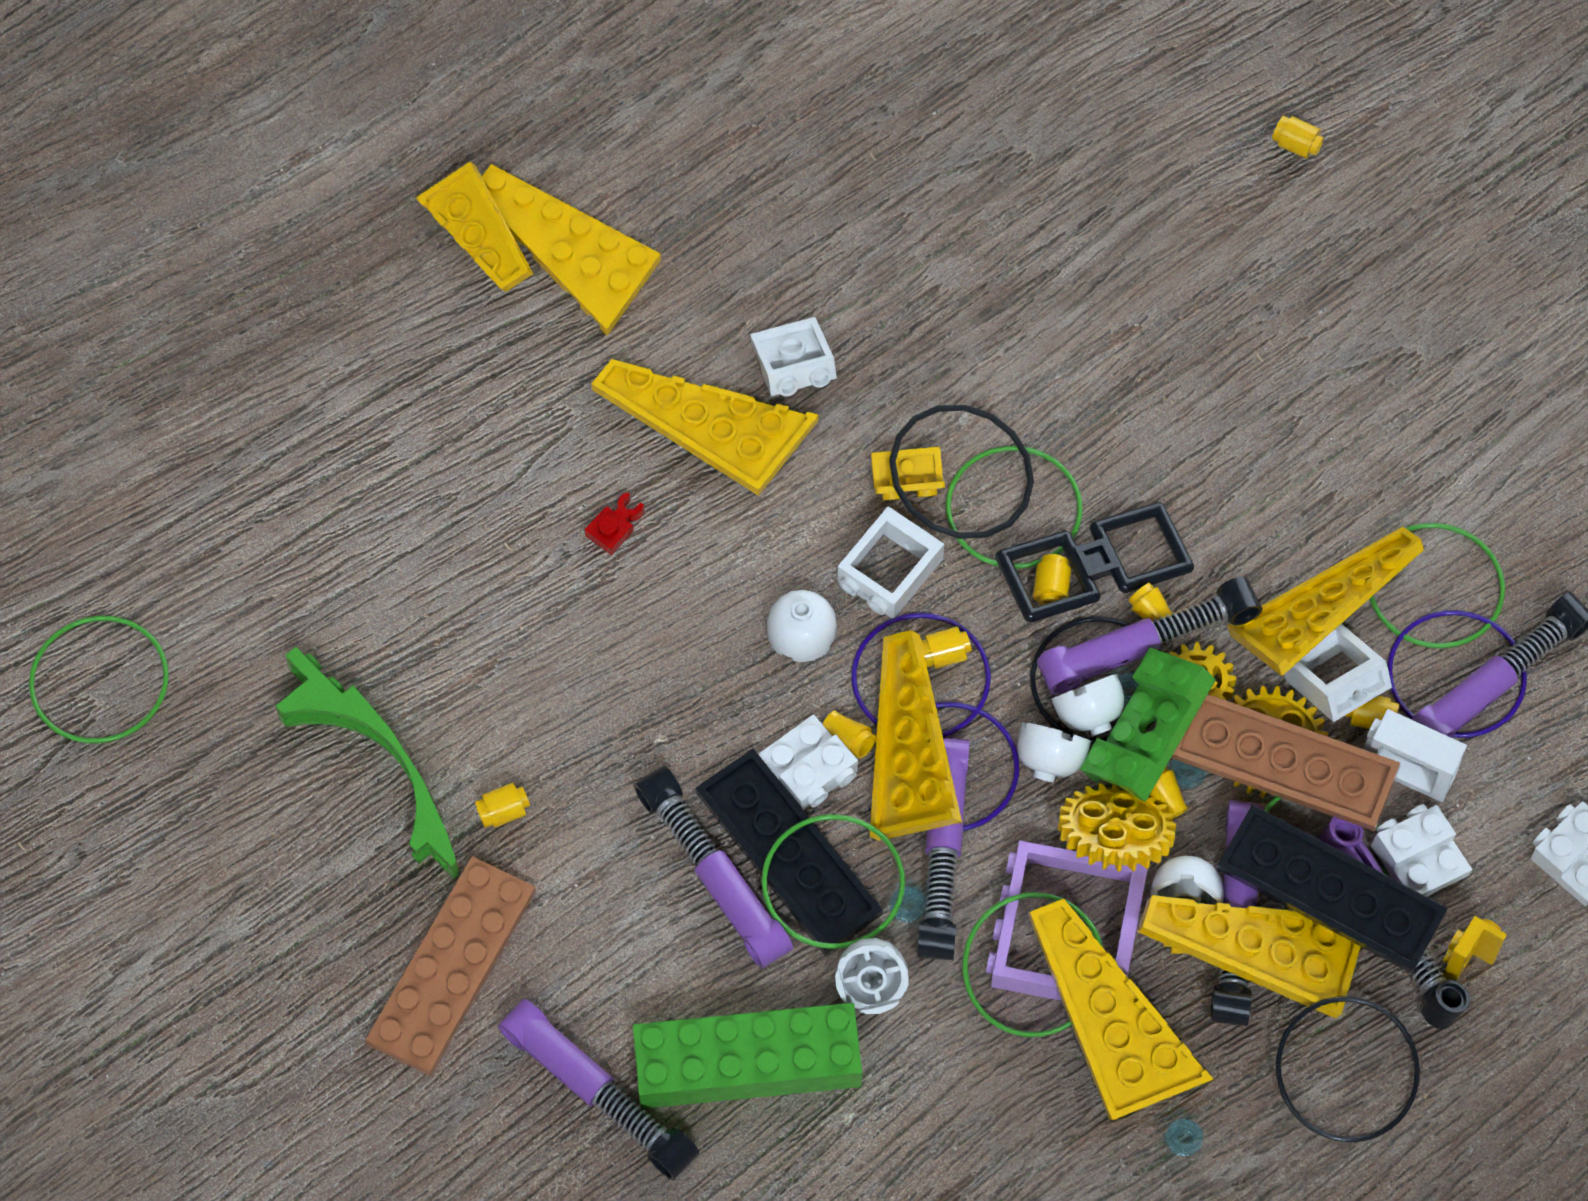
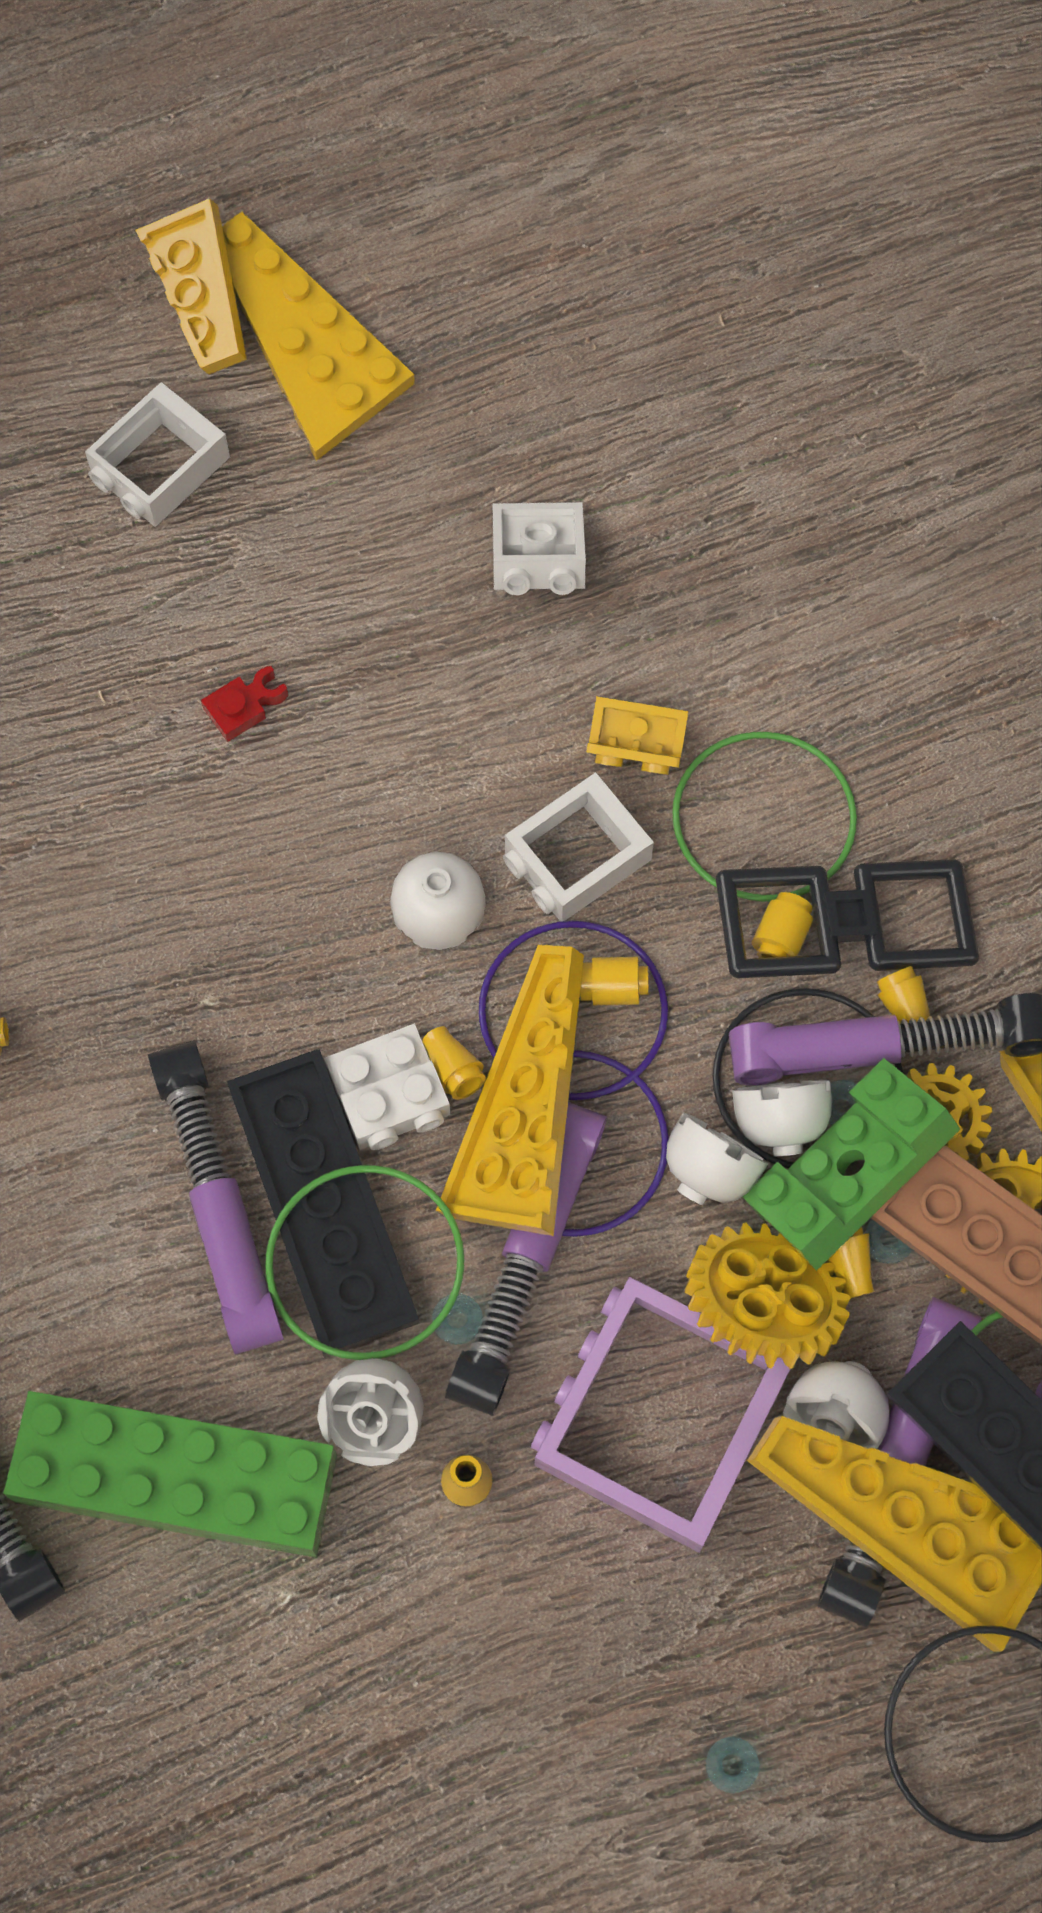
camera: 15 degrees right, 5 degrees up
(501, 331) = (155, 409): none -> white window
(717, 425) = (413, 610): yellow wing -> none
(948, 1005) = (468, 1492): none -> yellow cone
(961, 535) = (664, 826): black piece -> none
(966, 953) = (690, 1470): bright green piece -> none
(1119, 1031) = (685, 1597): yellow wing -> none

